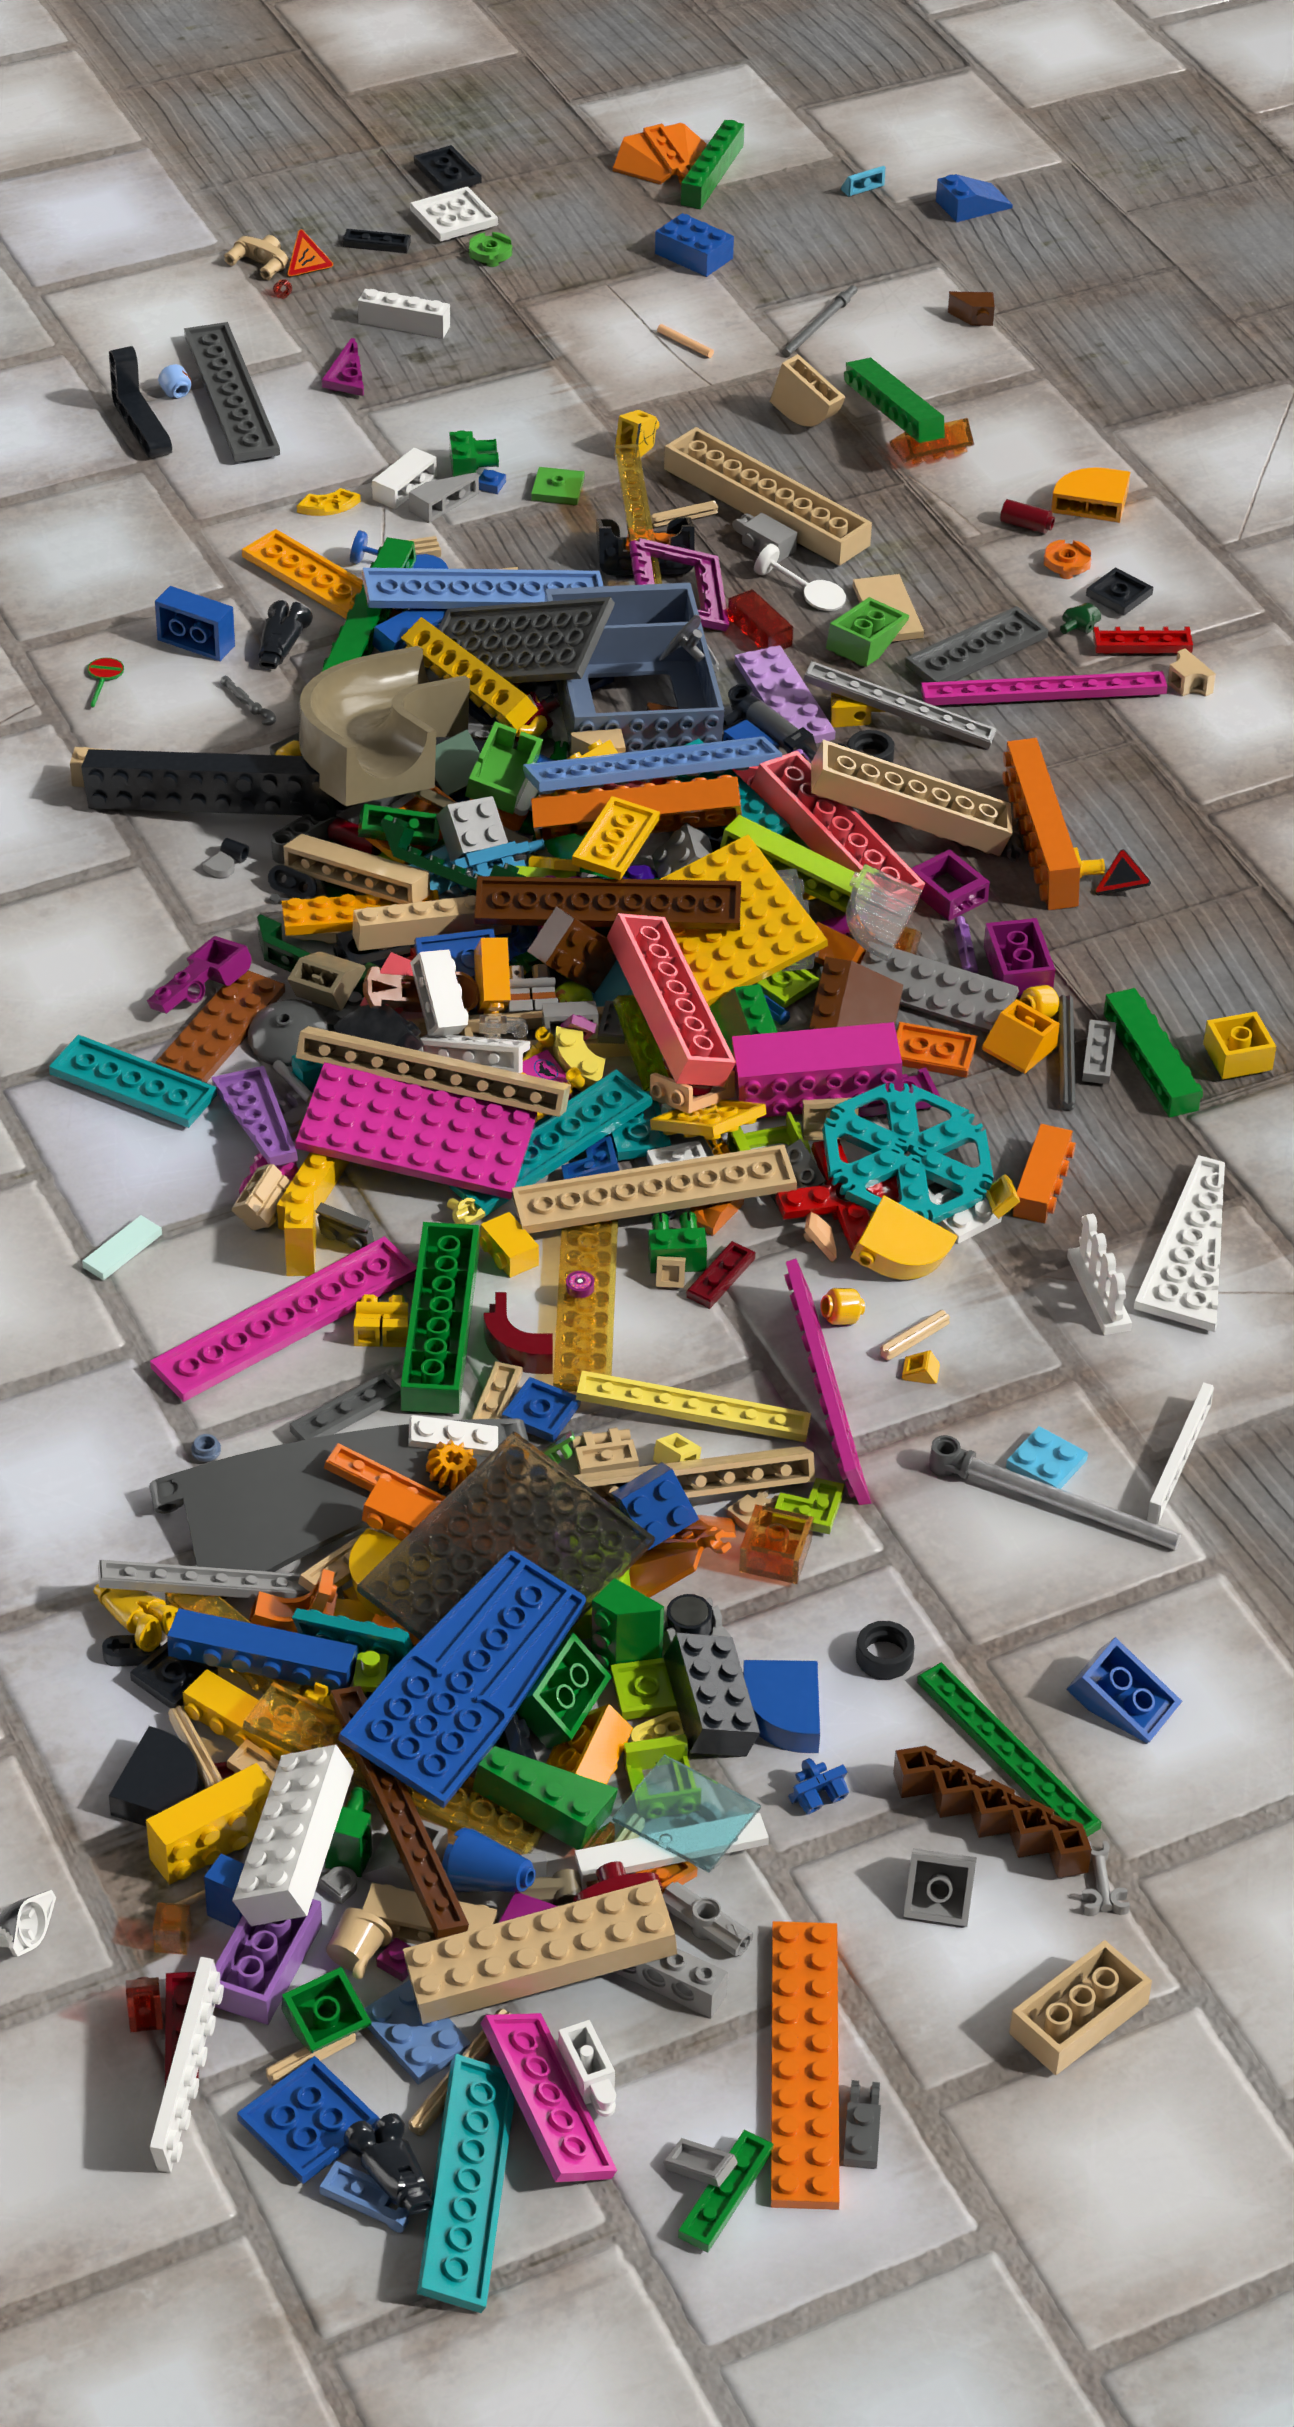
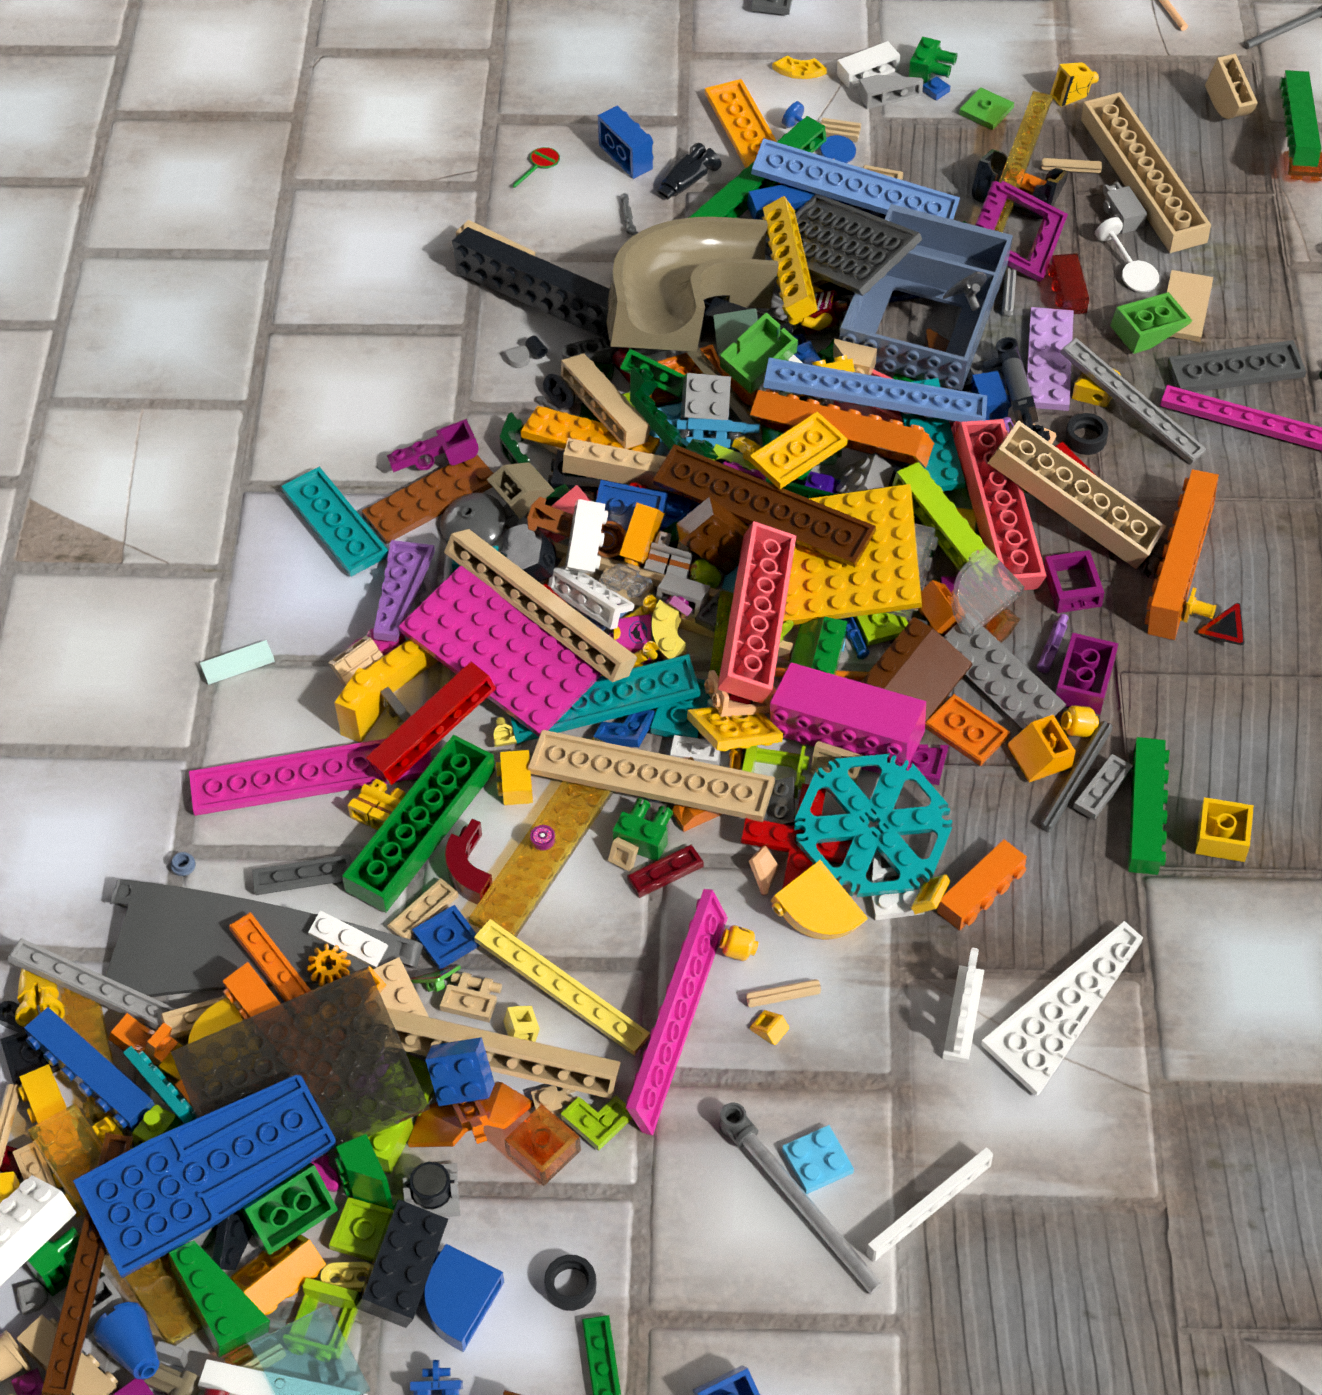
camera: 30 degrees right, 10 degrees up
(395, 1217) = (431, 723): none -> red brick

